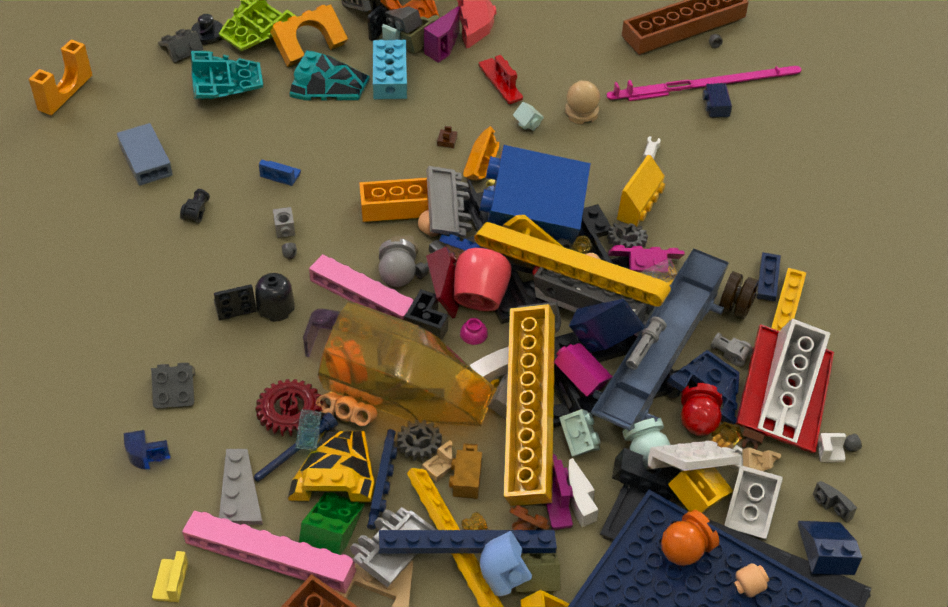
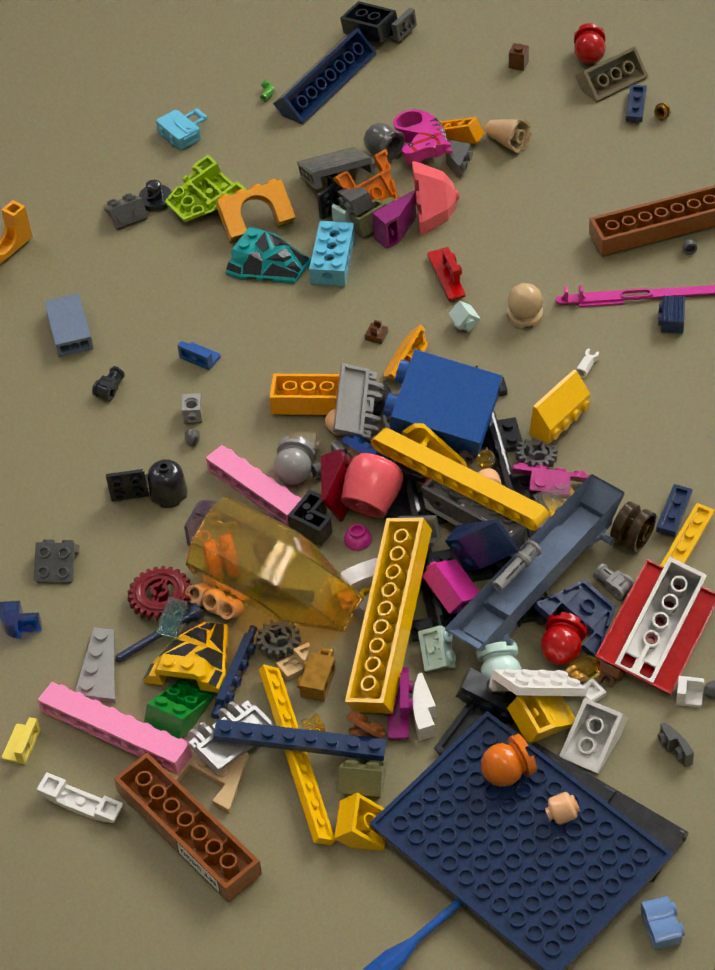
camera: 15 degrees right, 0 degrees up
(222, 77) = (159, 248): teal wedge -> none
(503, 564) = (326, 764): light blue brick -> none
(759, 460) = (611, 696): tan slope -> none
(830, 548) = (655, 788): dark blue slope -> none

